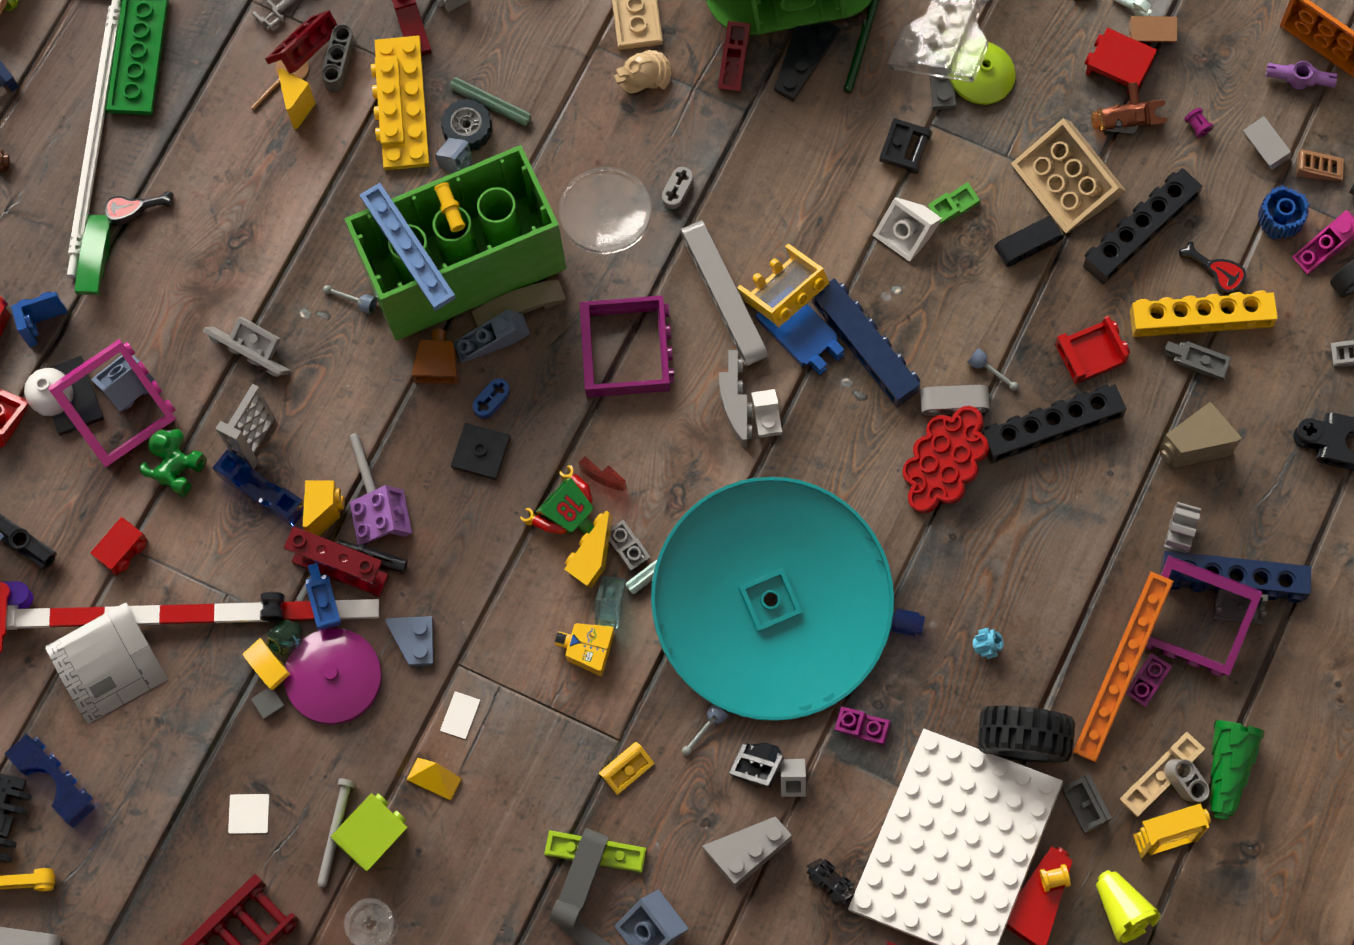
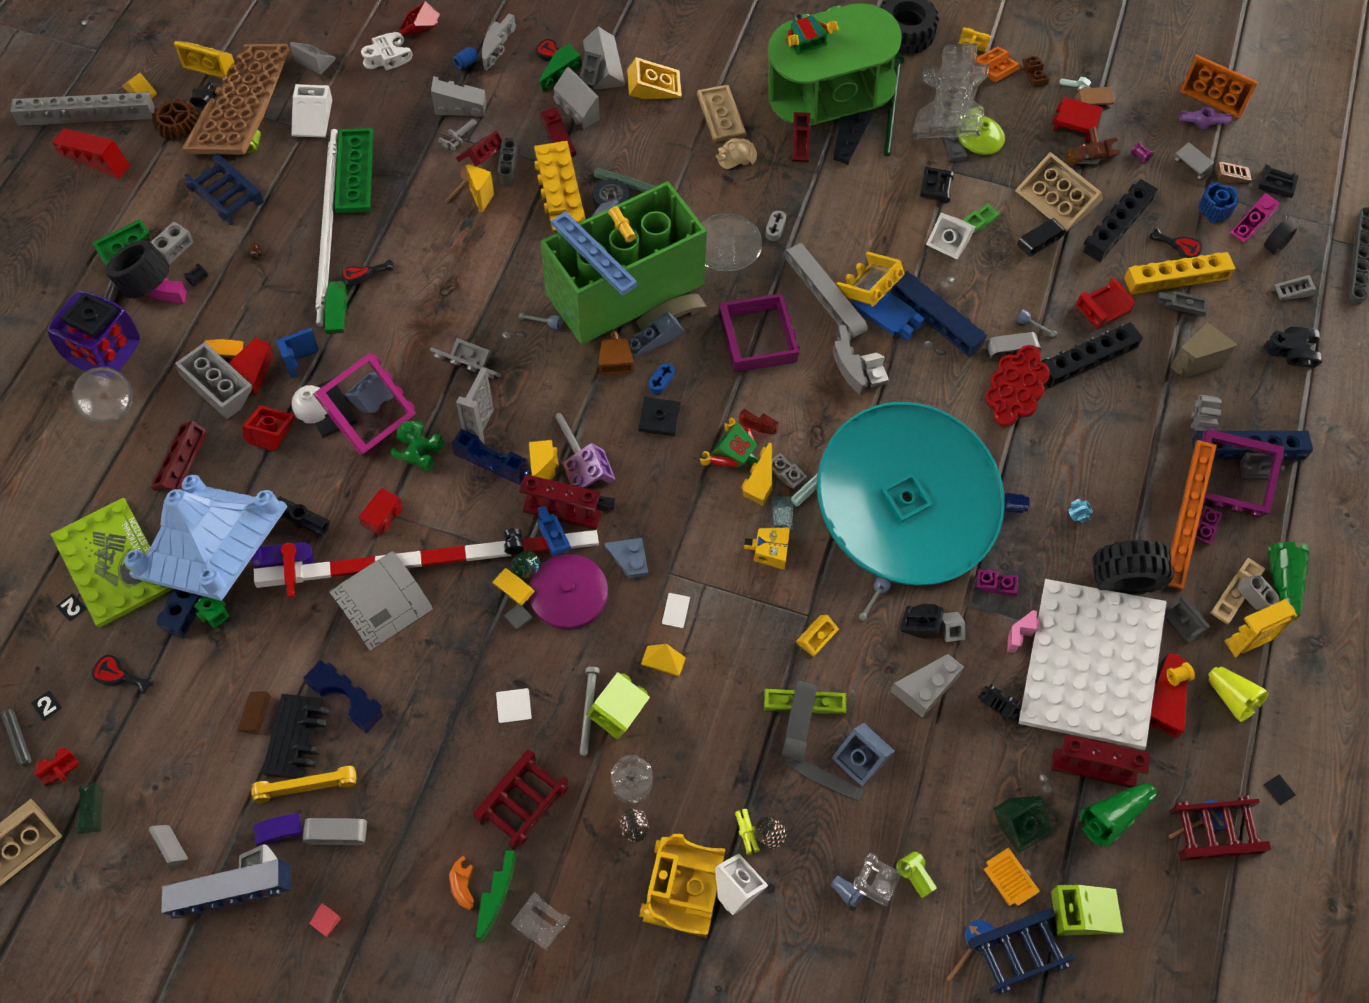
camera: 15 degrees left, 10 degrees down
(882, 789) = (1023, 627): none -> bright pink slope

